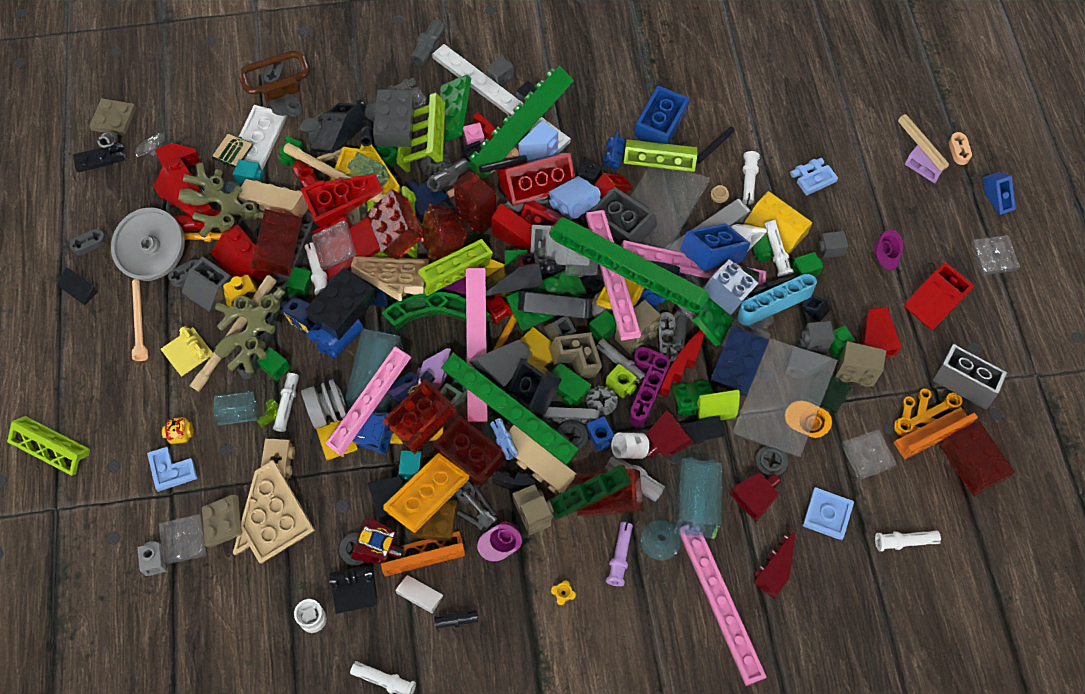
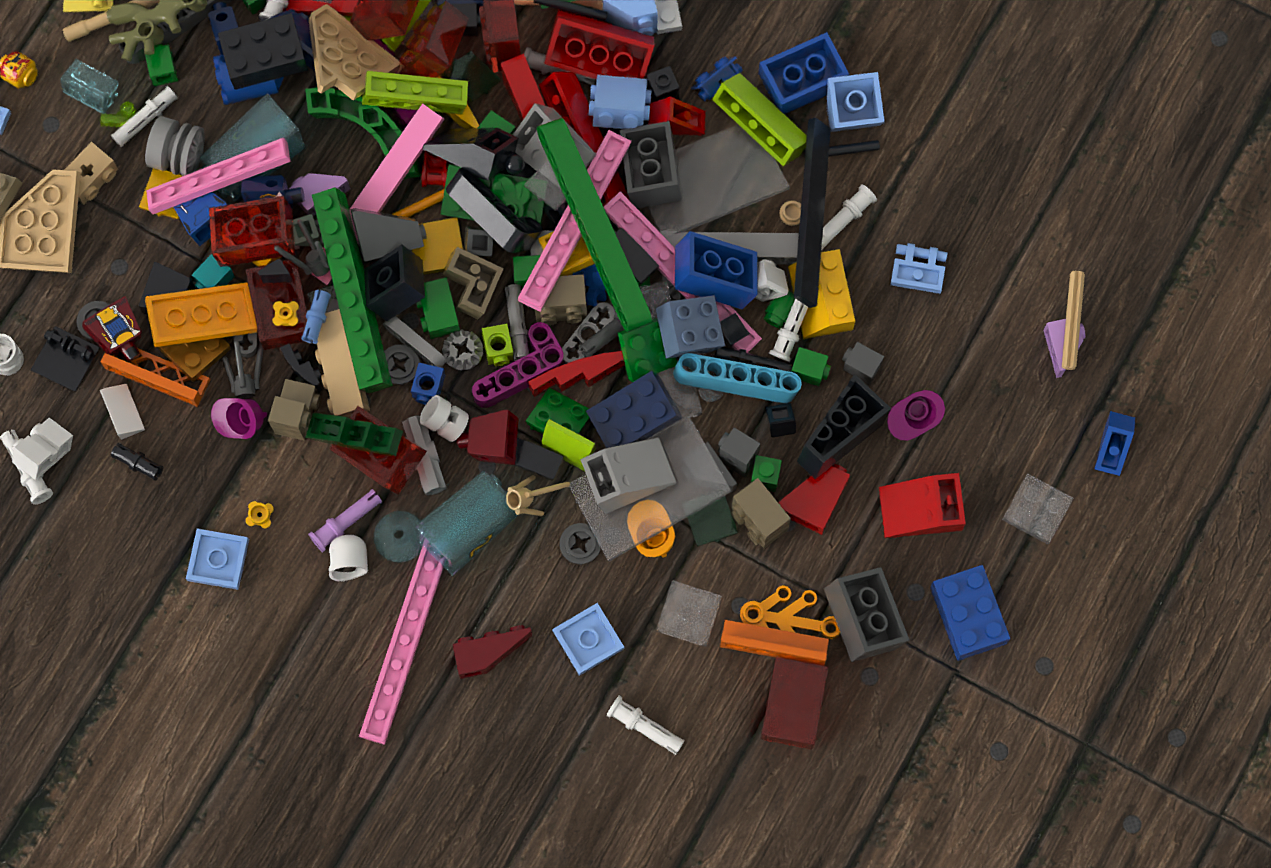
camera: 40 degrees right, 10 degrees up
(387, 657) = (43, 449): none -> white brick
(457, 430) = (275, 273): none -> black slope
(473, 409) = (315, 260): none -> dark grey plant
(482, 457) = (289, 320): none -> yellow plate
(561, 641) = (217, 559): none -> light blue plate
(644, 572) = (347, 552): none -> white helmet
(704, 112) = (854, 102): none -> light blue slope
(720, 455) = (520, 498): none -> tan plant
(756, 494) = (532, 565): dark red torso -> none
(768, 396) = (627, 473): none -> light grey slope
(774, 219) = (812, 213): none -> black tile
(860, 282) = (847, 424): none -> black wedge
(963, 148) = (1129, 361): light nougat beam -> none
(1018, 335) = (969, 612): none -> blue brick

